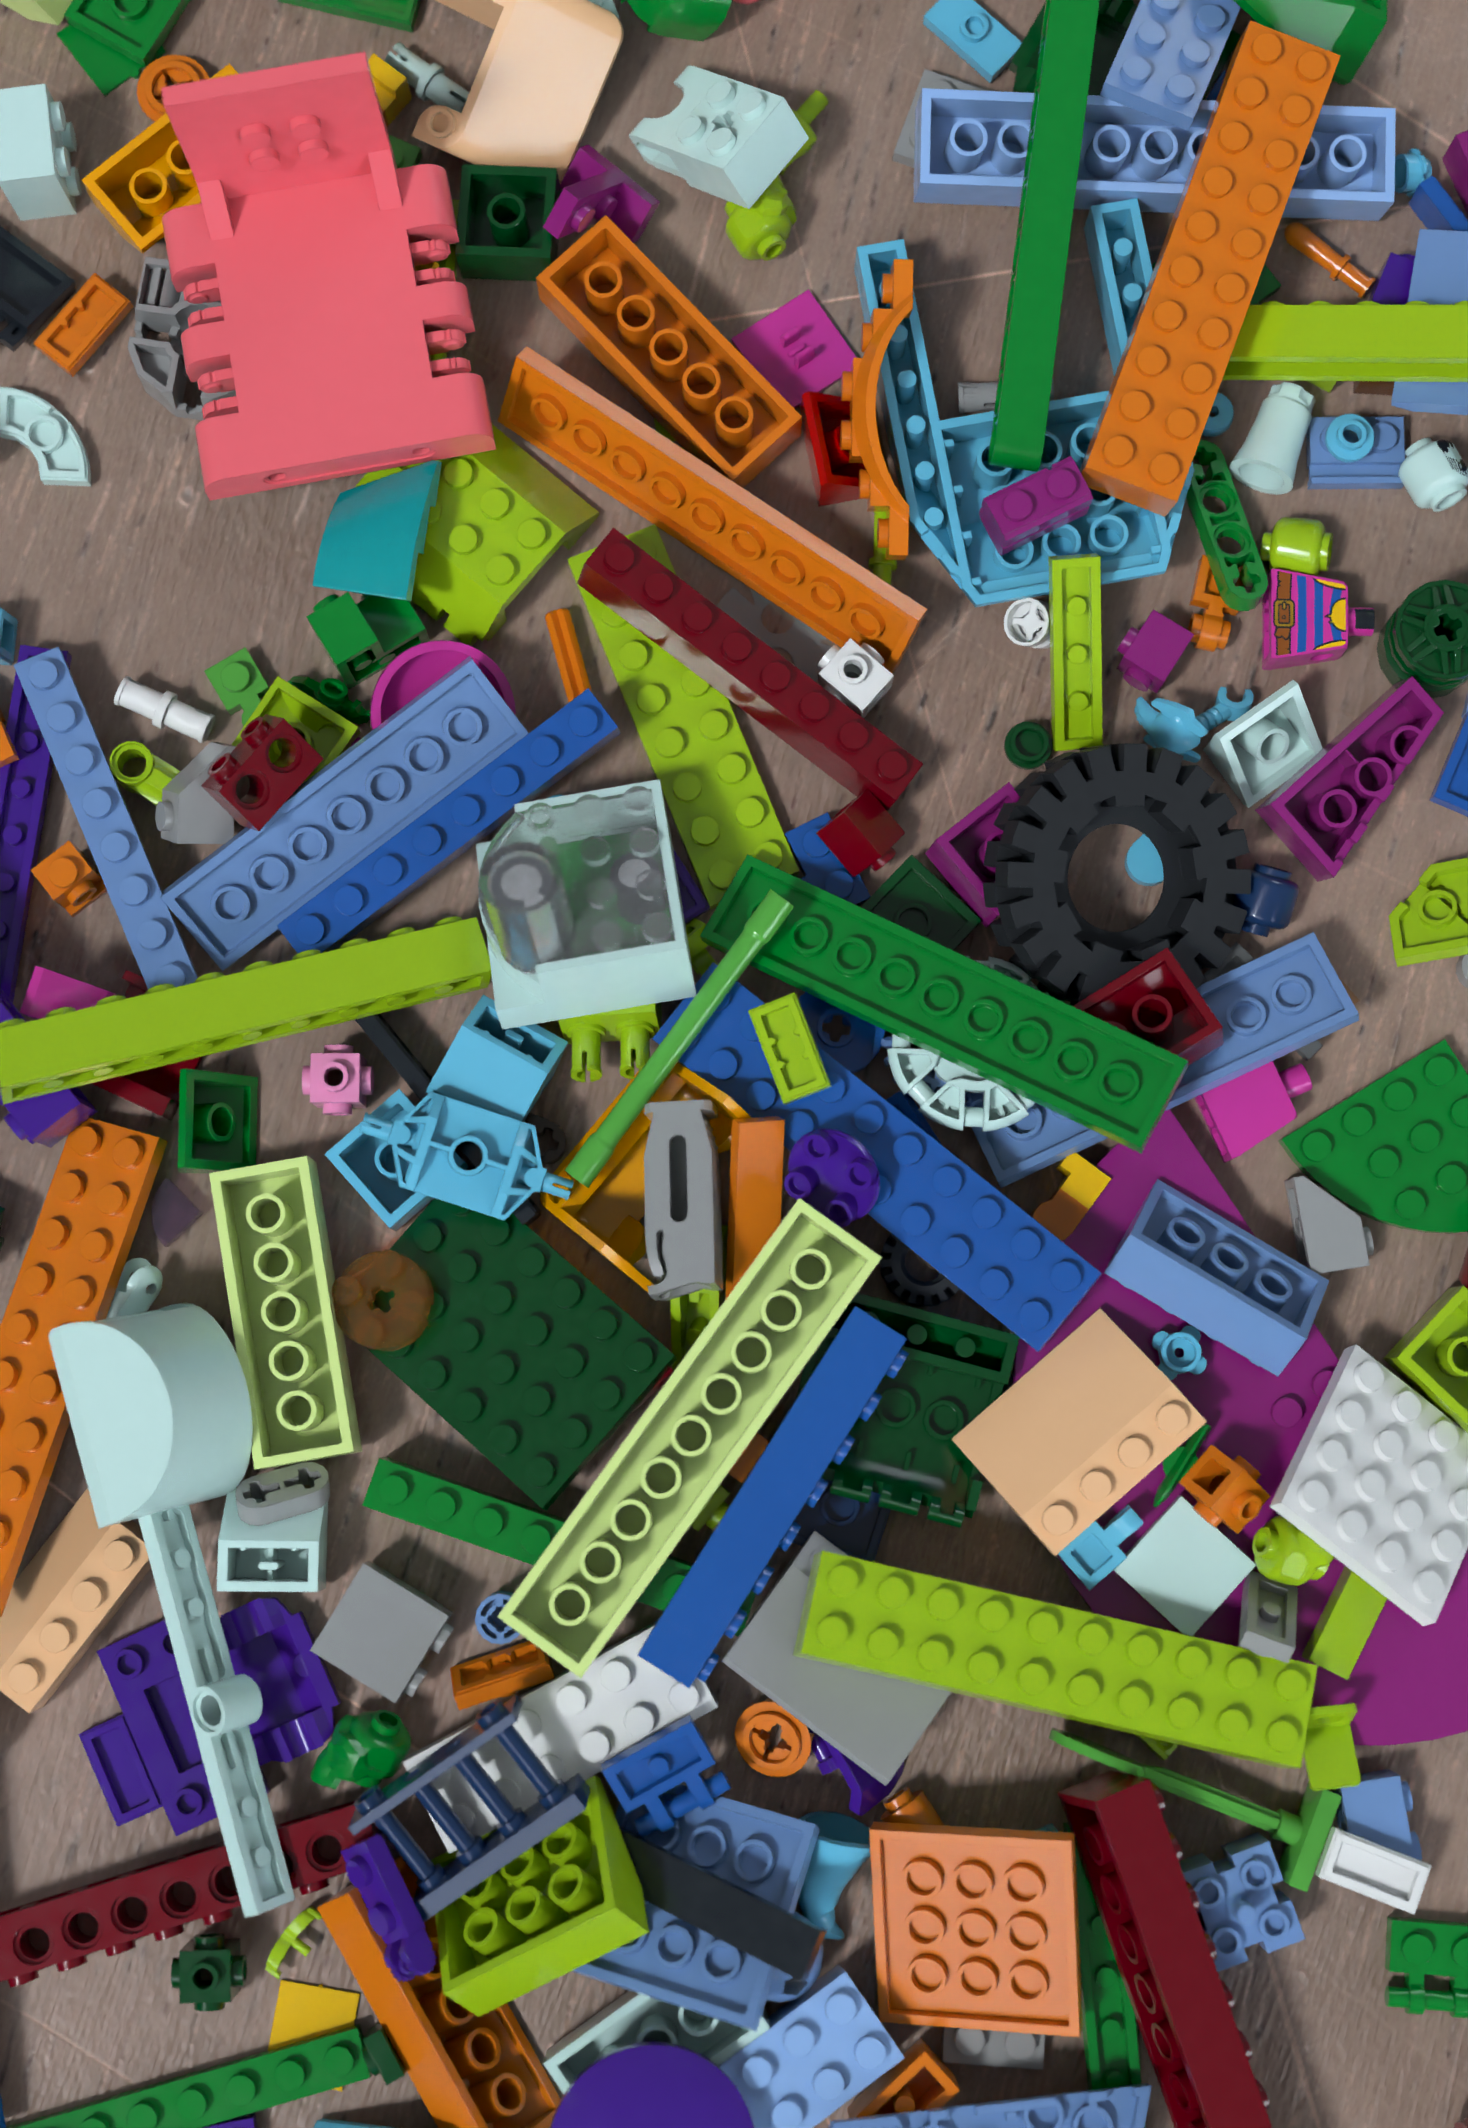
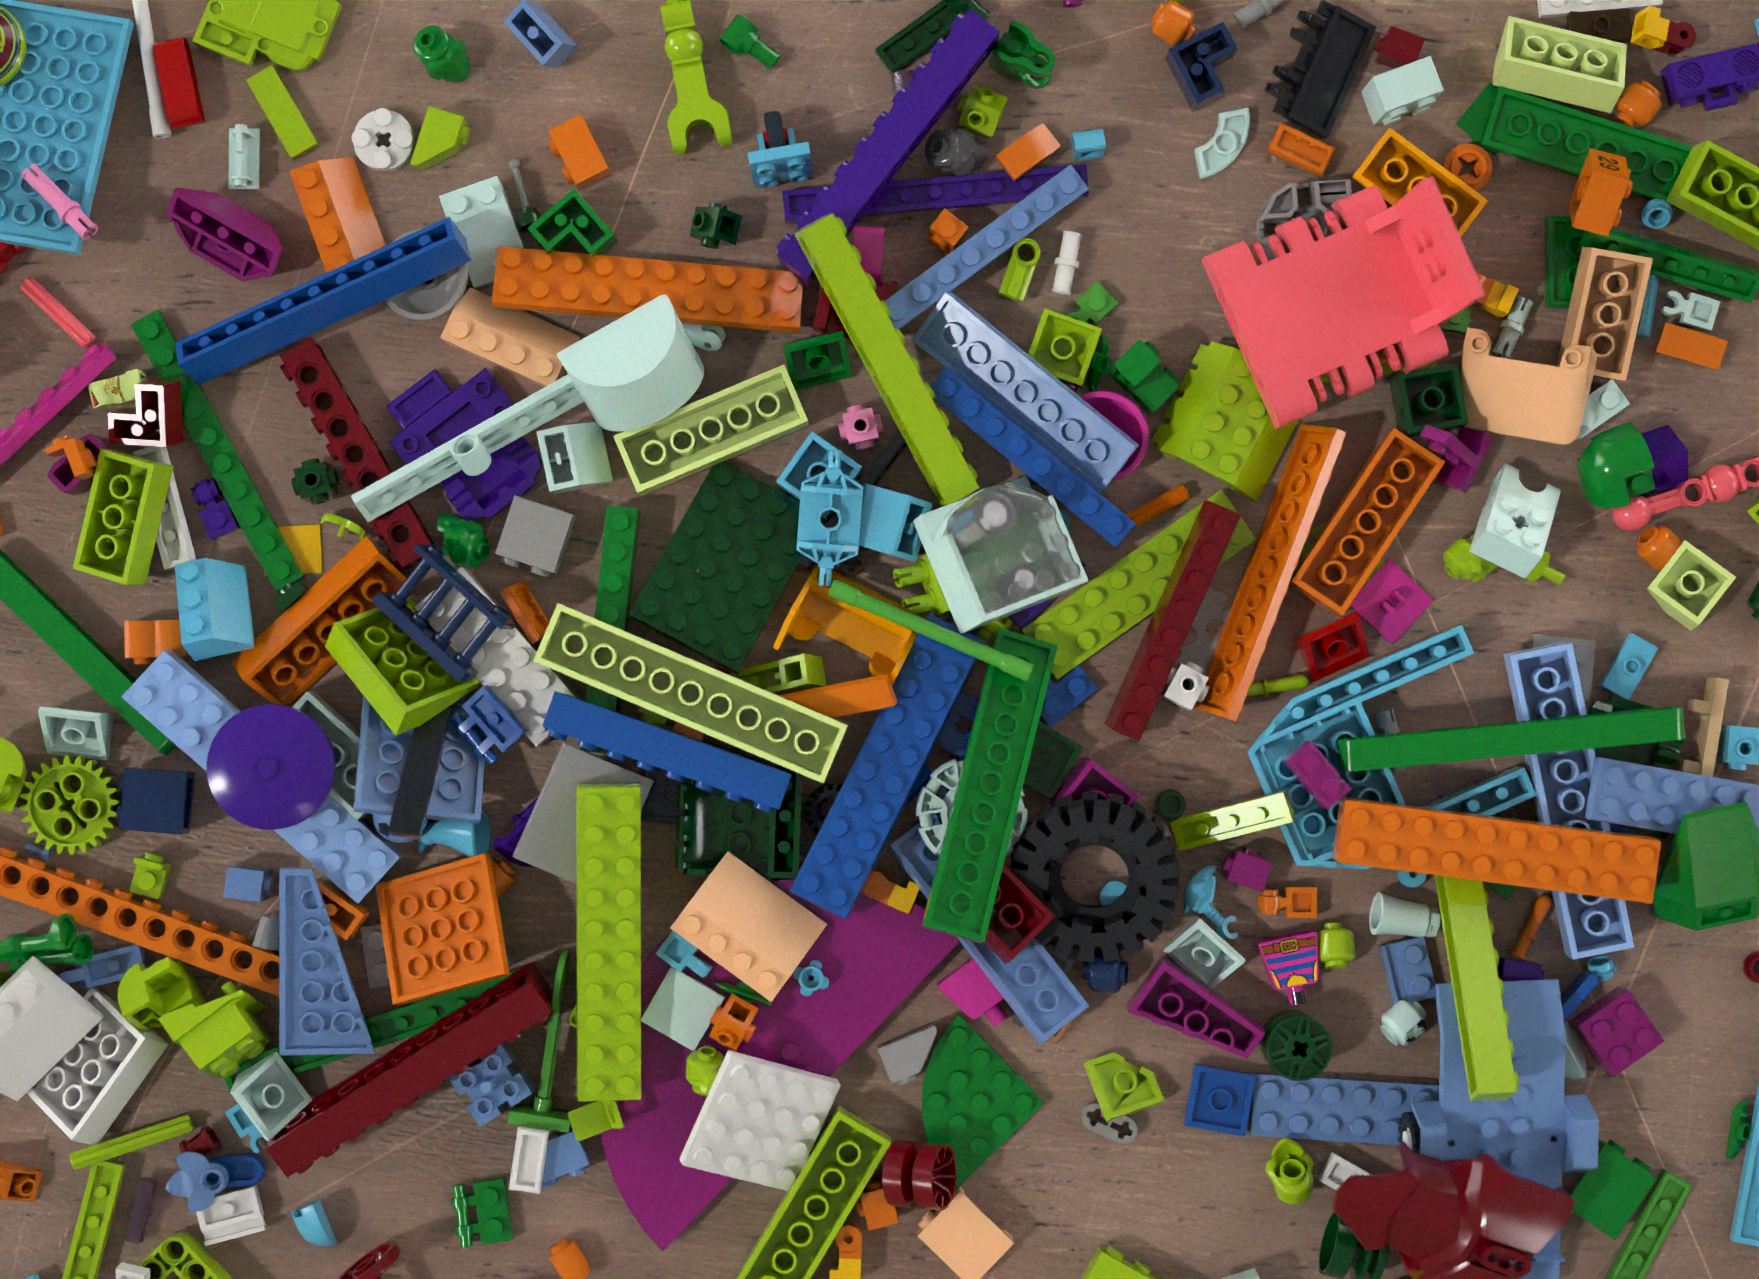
camera: 75 degrees right, 5 degrees up
(172, 1212) = (757, 346): clear purple tile -> none
(188, 811) = (1012, 301): light grey slope -> none
(269, 782) = (1032, 341): dark red brick -> none
(282, 1493) = (603, 455): light grey beam -> none
(356, 1292) = (732, 504): clear orange plate -> none
(377, 534) = (1203, 370): teal slope -> none
(390, 1908) = (376, 579): dark purple hinge -> none
(488, 1612) = (562, 596): medium blue wheel -> none
(683, 1199) = (833, 655): light grey piece -> none
(753, 1739) = (523, 772): orange gear -> none
(789, 1048) = (939, 699): lime plate -> none
(833, 1175) = (867, 742): dark purple dish -> none
(861, 432) = (1368, 647): orange piece -> none
(862, 834) = (1087, 713): dark red brick -> none
(1024, 620) = (1244, 784): white wheel -> none
(1218, 1278) = (861, 991): medium blue slope -> none
(1226, 524) = (1340, 899): green beam -> none
(1268, 1617) = (663, 1064): light grey plate -> none
(1343, 449) = (1404, 959): medium azure plate -> none
(1344, 1624) = (669, 1112): lime slope -> none

